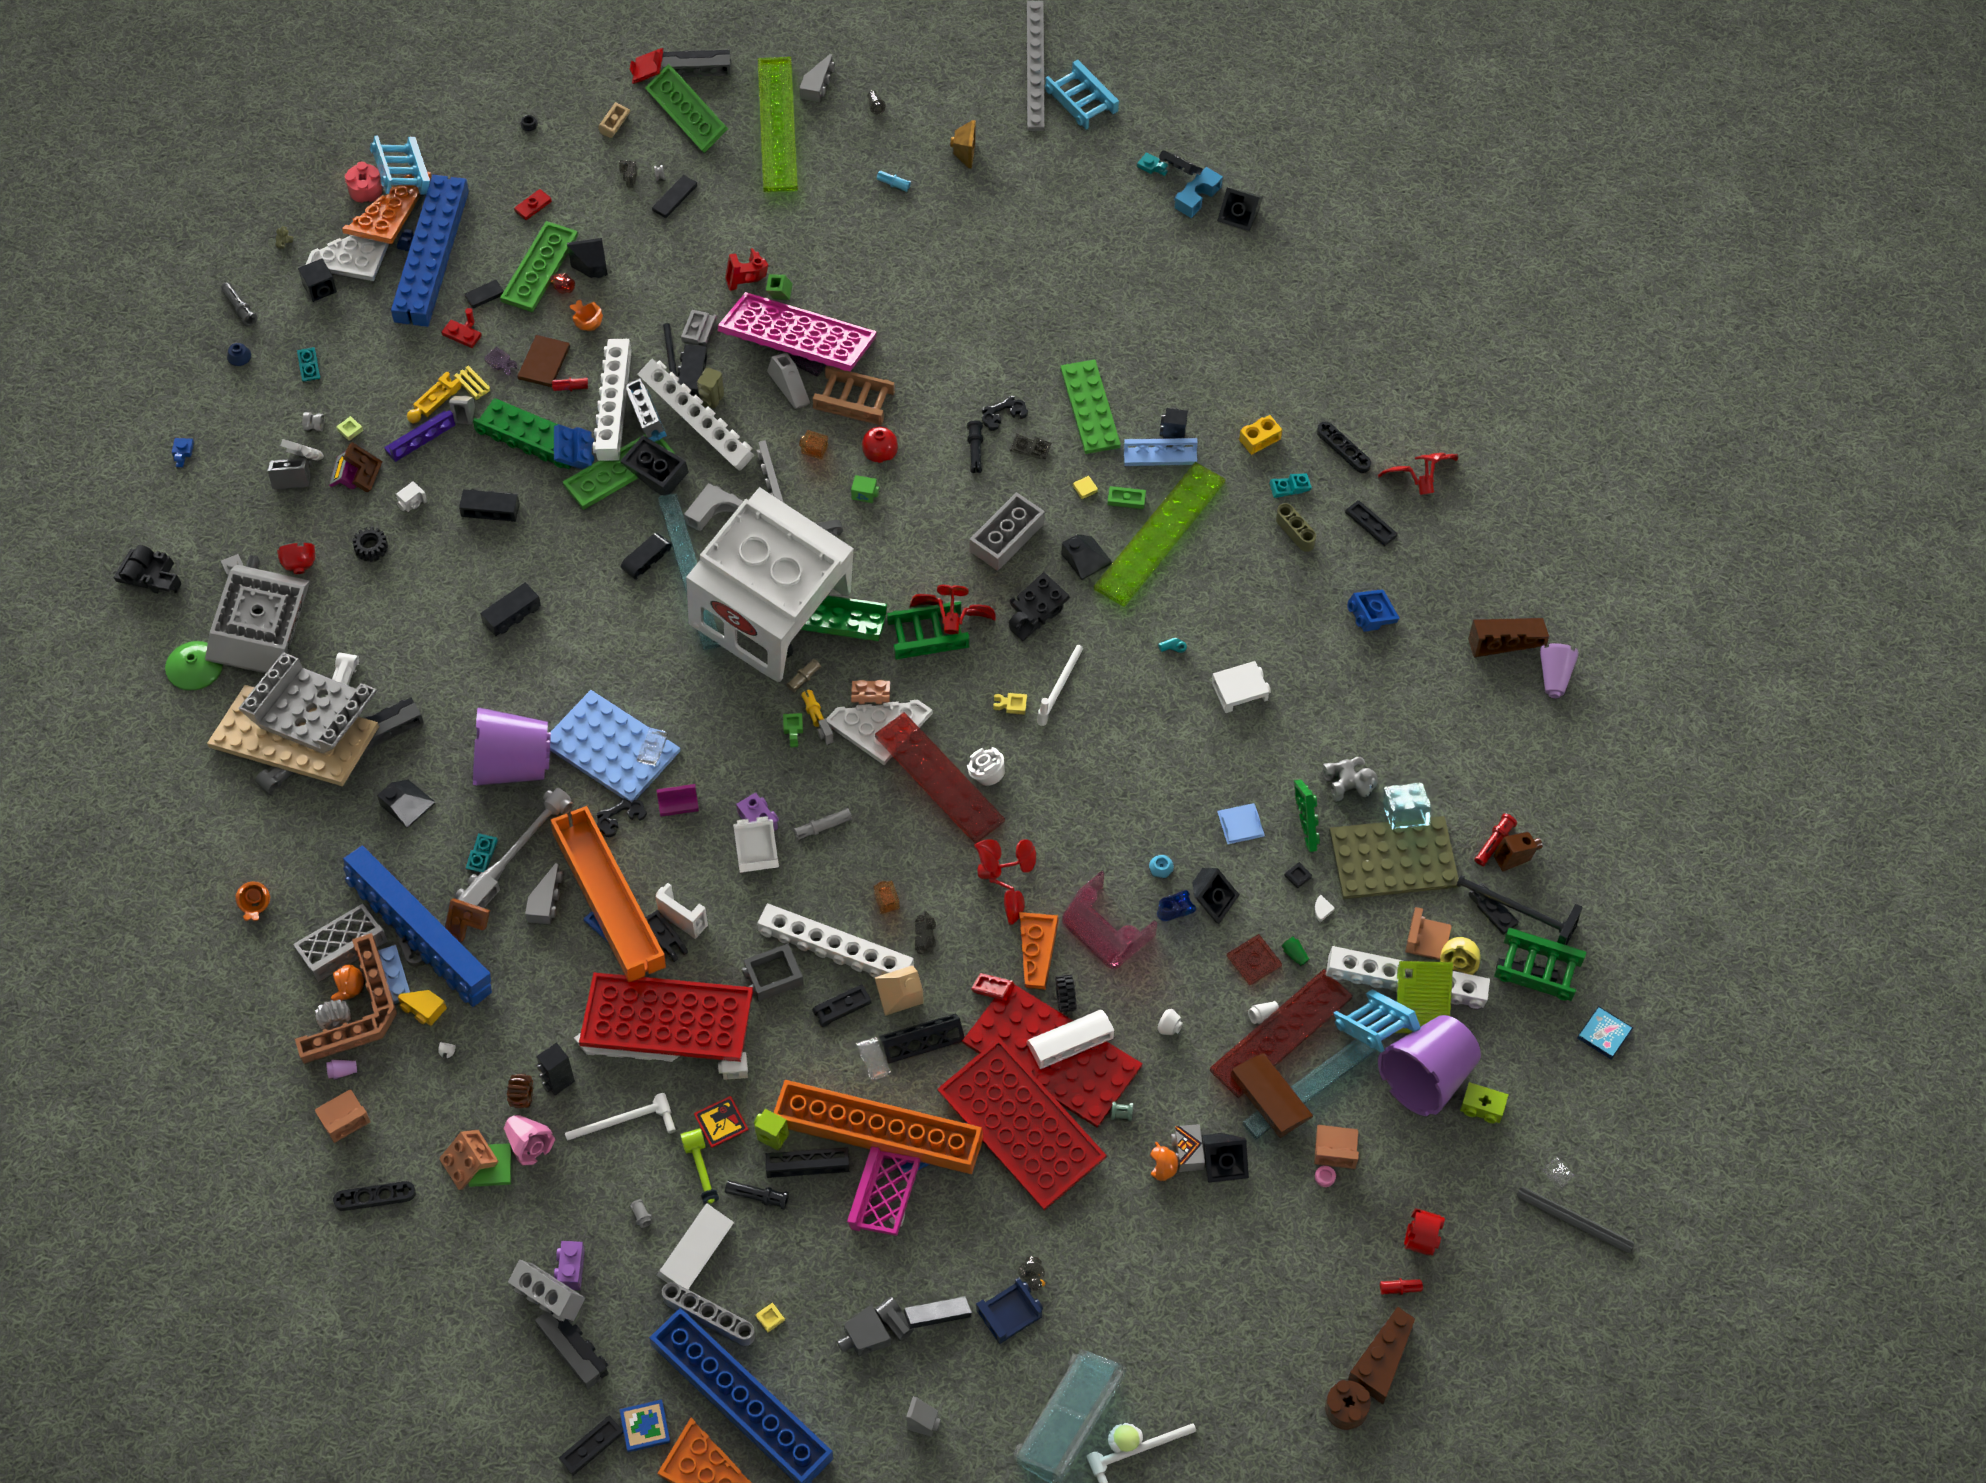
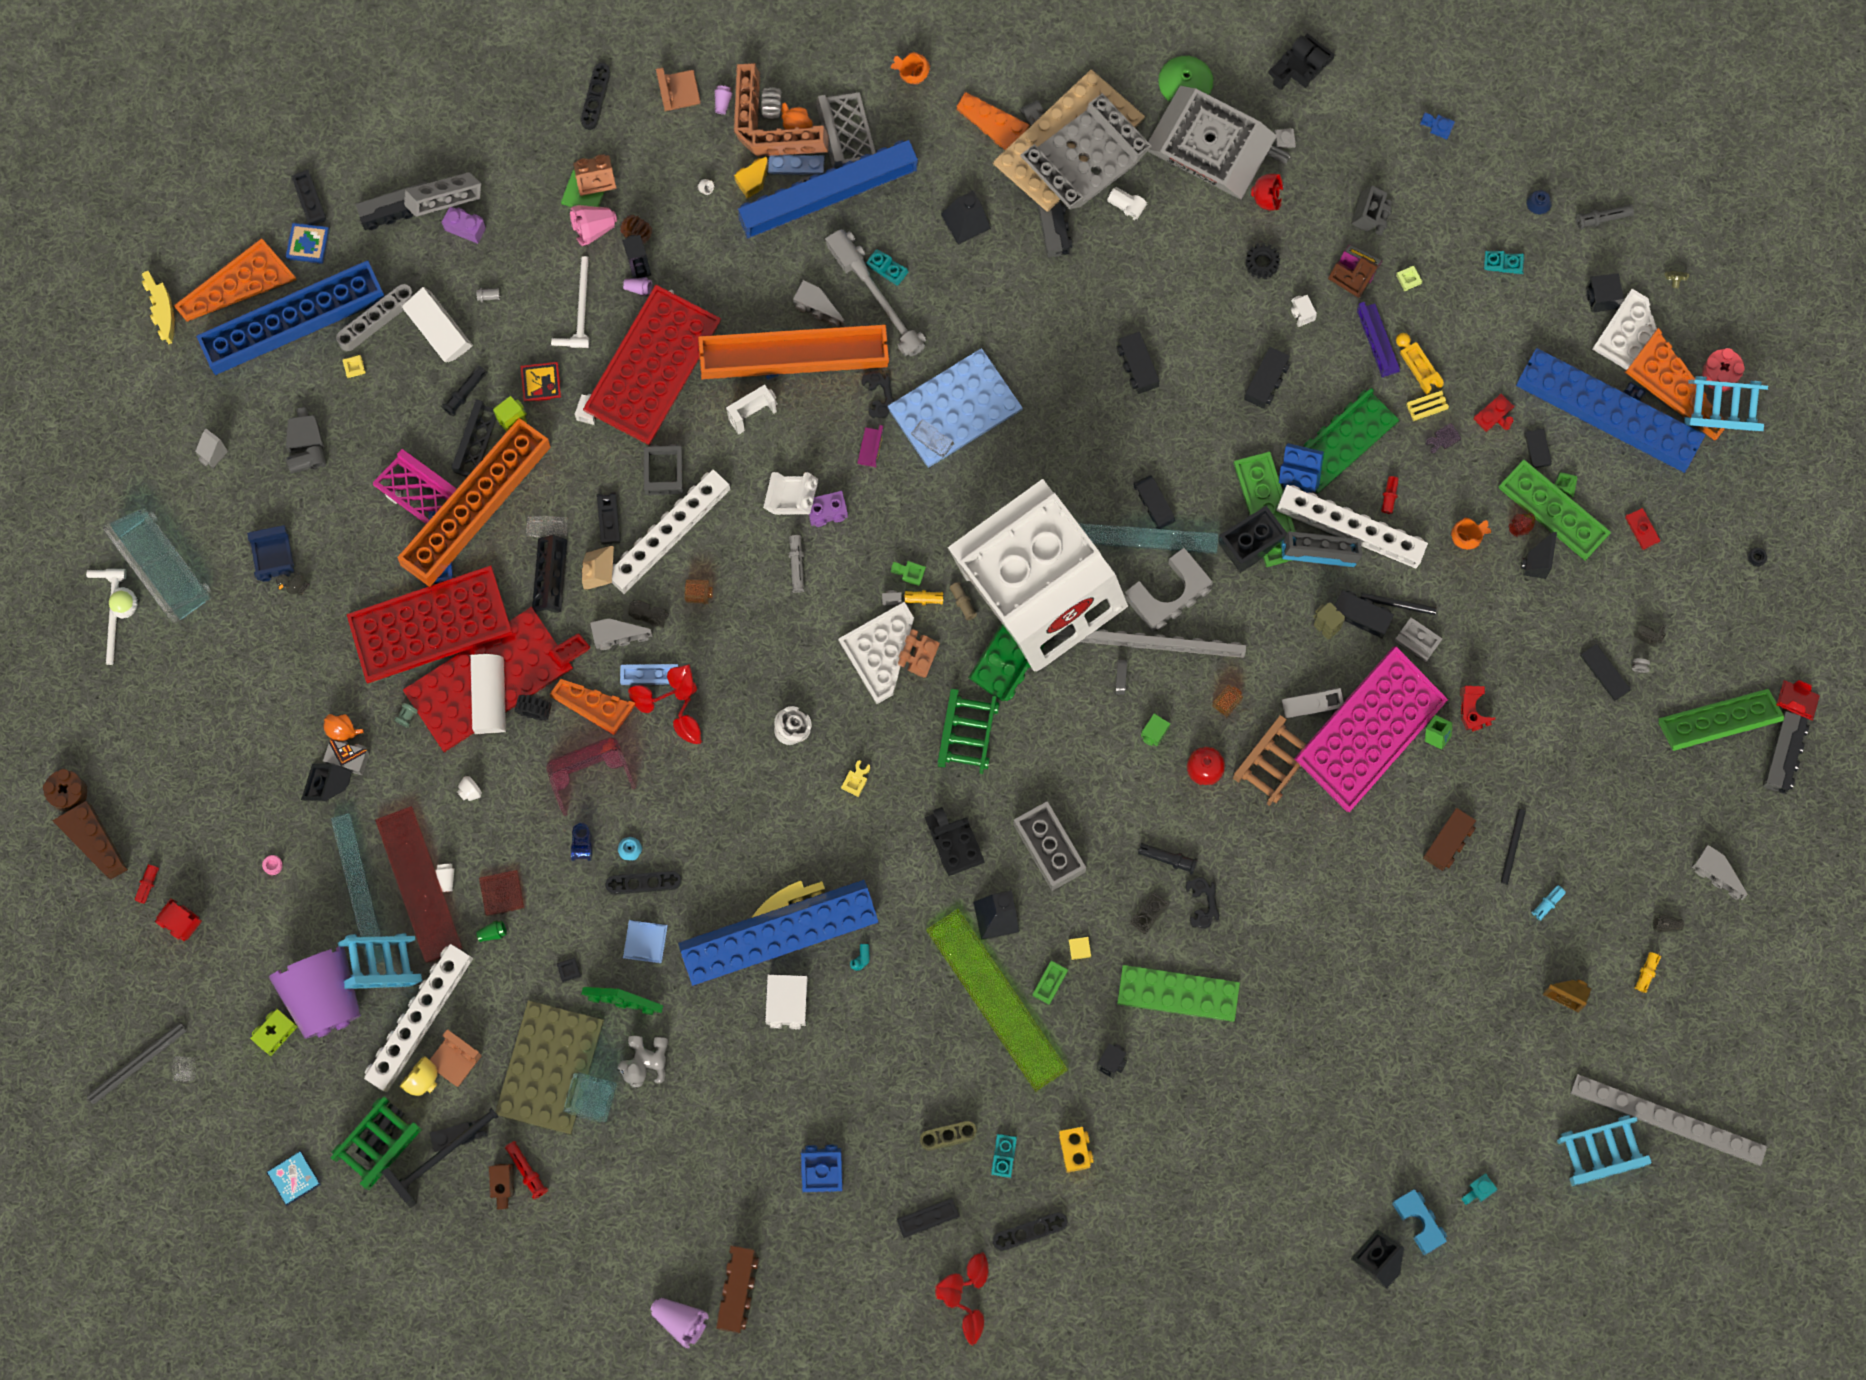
camera: 115 degrees right, 15 degrees up
(290, 812) = (992, 121): none -> orange wing
(302, 450) = (1395, 222): white plate -> none
(313, 421) = (1428, 247): light grey wheel -> none
(462, 409) = (1393, 384): light grey slope -> none
(463, 914) = (819, 227): dark orange plate -> none
(509, 265) = (1566, 483): none -> bright green slope
(509, 748) = (972, 308): medium lavender cone -> none
(543, 360) = (1431, 480): reddish brown tile -> none
(580, 1069) = (638, 285): none -> lavender cone
(613, 120) = (1731, 642): tan brick -> none
(650, 374) = (1300, 595): white brick -> none
(665, 934) = (737, 391): black hinge -> none
(693, 1143) = (532, 353): lime piece -> none
(777, 124) = (1672, 809): clear neon green plate -> none
(855, 218) = (1513, 846): none -> black bar
(869, 257) = (1450, 840): none -> reddish brown brick
(922, 105) = (1647, 972): none -> yellow pin
(937, 1312) = (294, 495): tile -> none
(939, 778) = (801, 682): clear red plate -> none
(952, 621) = (968, 751): red plant -> none
(959, 956) = (614, 632): none -> light grey slope
(986, 910) = (645, 674): none -> light blue plate
(1047, 704) = (829, 803): white bar -> none
(1155, 722) = (790, 895): none -> light yellow slope
(1160, 454) = (1090, 1038): light blue fence -> none
(1180, 163) = (1461, 1215): black plate -> none
(1185, 709) = (778, 932): none -> blue brick
(1191, 841) = (643, 882): none -> black beam
(1214, 893) = (578, 880): black slope -> none
(1271, 1094) = (360, 845): reddish brown slope -> none
(1323, 908) = (525, 977): white tile -> none
(1336, 1147) = (291, 884): nougat bracket -> none
(1427, 990) = (388, 1021): lime window -> none

